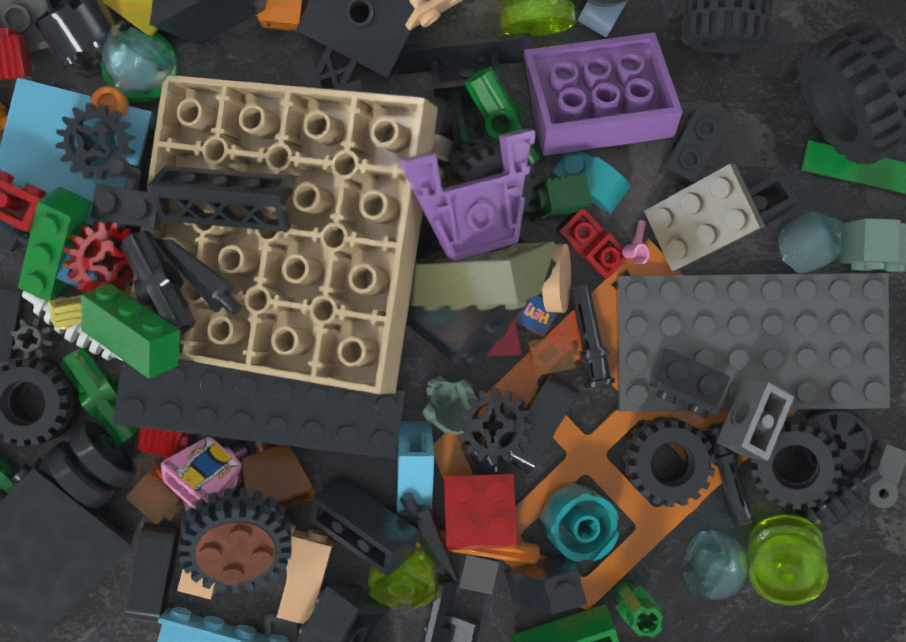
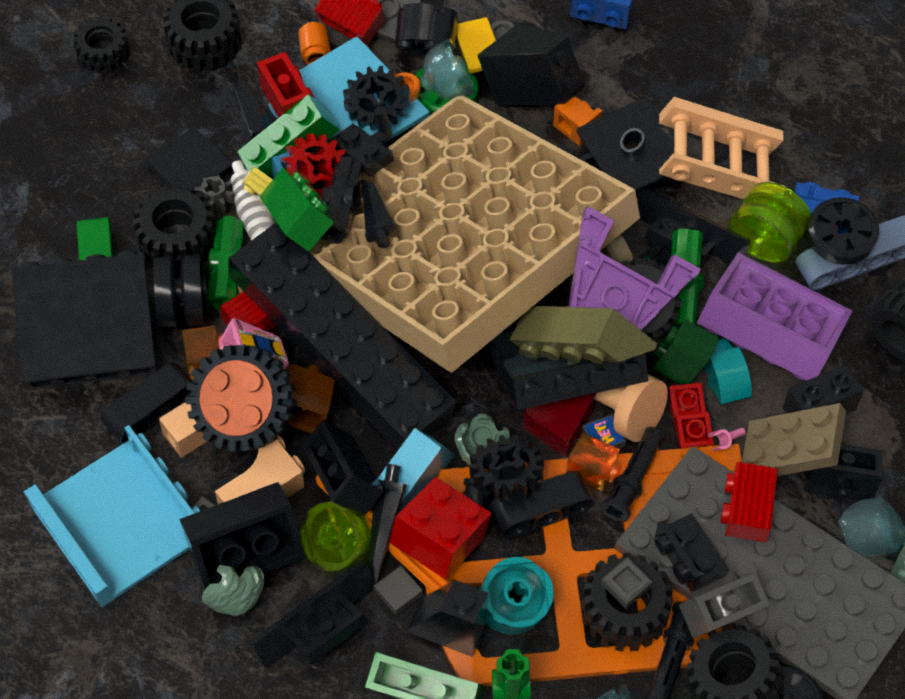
camera: 35 degrees right, 30 degrees down
(217, 190) = (442, 166): black fence -> none
(668, 461) = (626, 583): none -> dark grey tile
(708, 304) = (751, 501): none -> red brick

